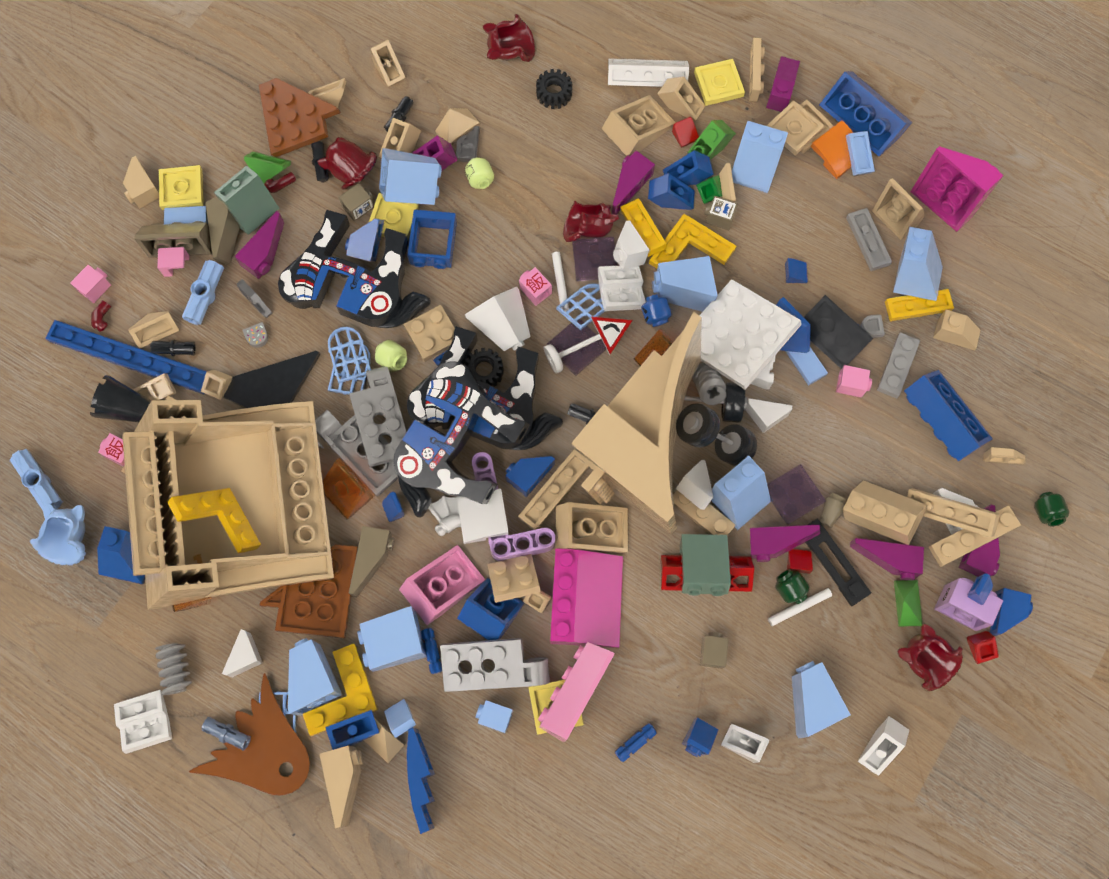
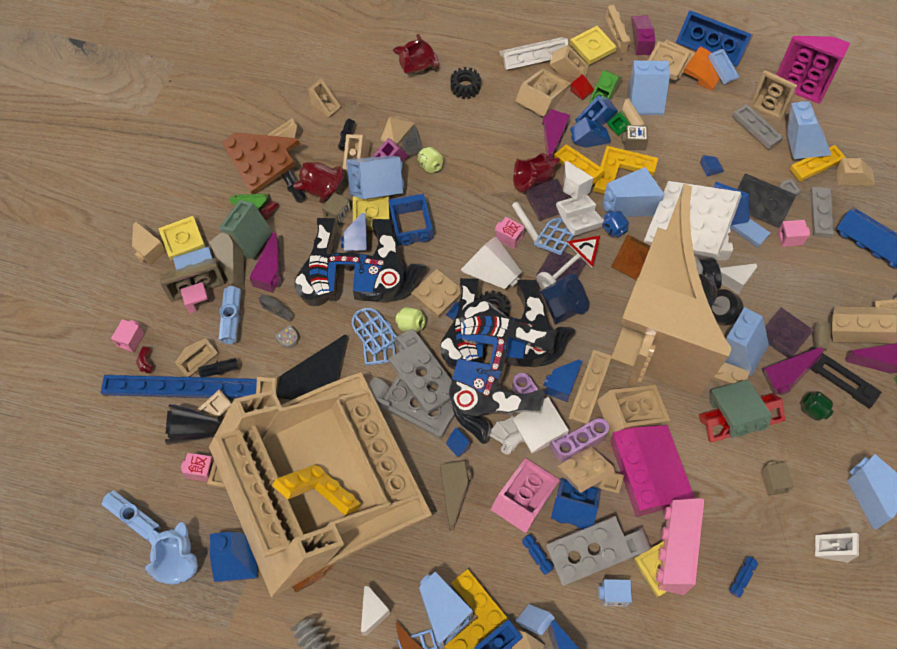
camera: 15 degrees left, 10 degrees down
(317, 606) = (423, 546): dark orange wing -> none
(345, 489) = (413, 438): clear orange slope -> none
(391, 639) = (502, 553): light blue slope -> none
(564, 382) = (565, 298): none -> dark blue slope
(581, 413) = (594, 321): black axle -> none
(700, 738) = (797, 554): blue slope -> none
(797, 608) = (828, 423): white bar -> none
(800, 560) = (813, 383): red slope -> none

